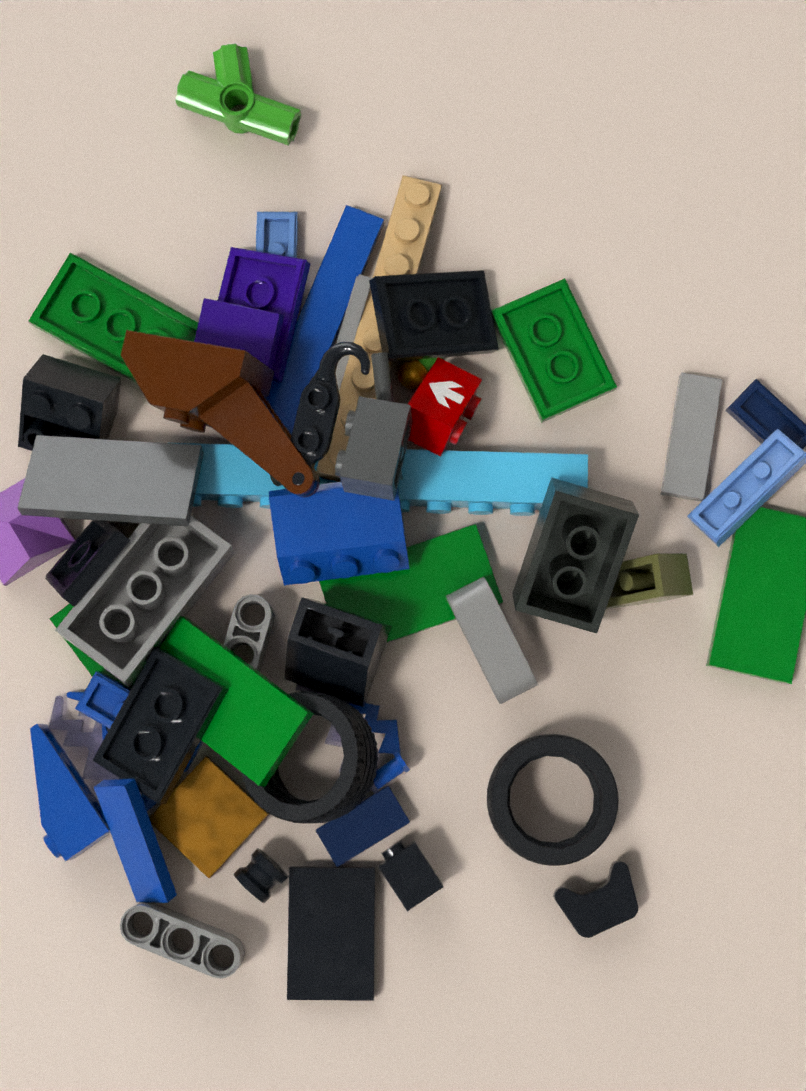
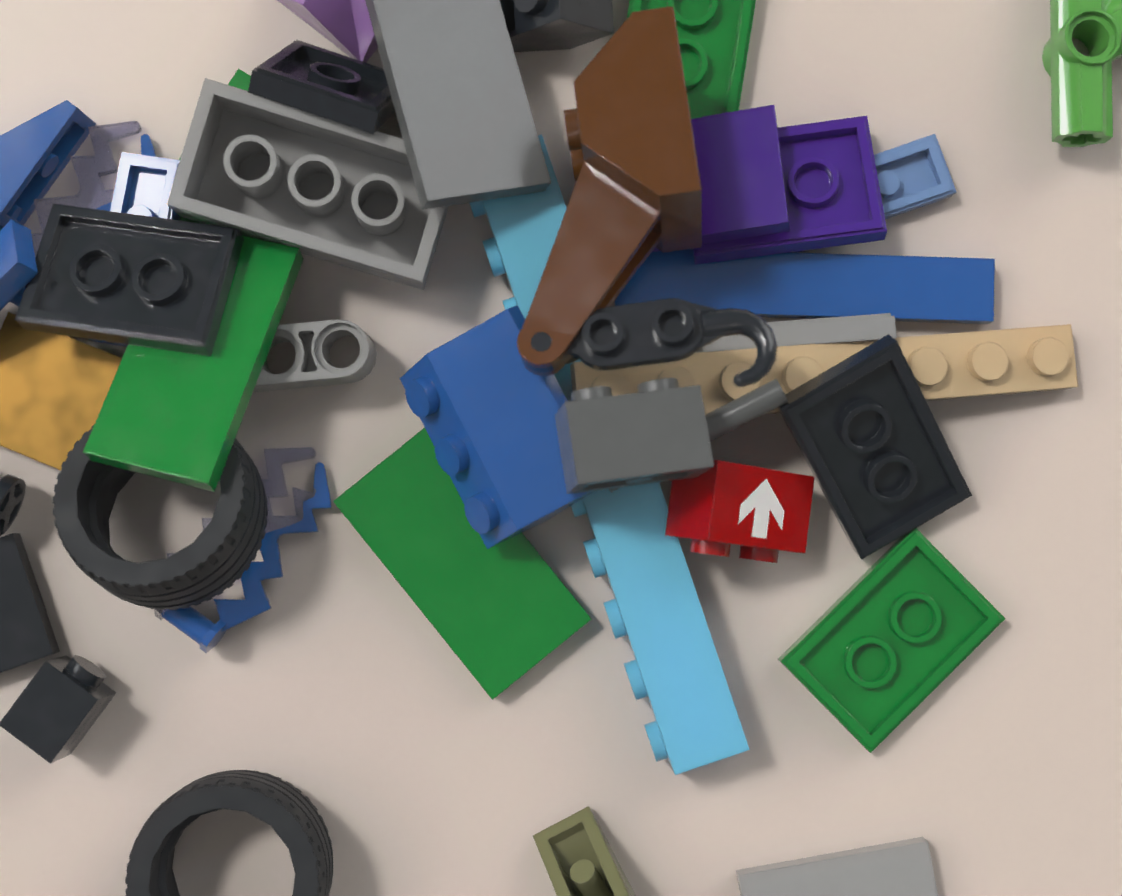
camera: 70 degrees right, 5 degrees up
(334, 651) = (332, 485): black slope -> none
(363, 826) = (115, 628): dark blue tile -> none
(413, 372) = (779, 450): pearl gold piece -> none
(491, 640) = (427, 703): light grey beam -> none
(574, 555) = (590, 786): pearl dark grey brick -> none

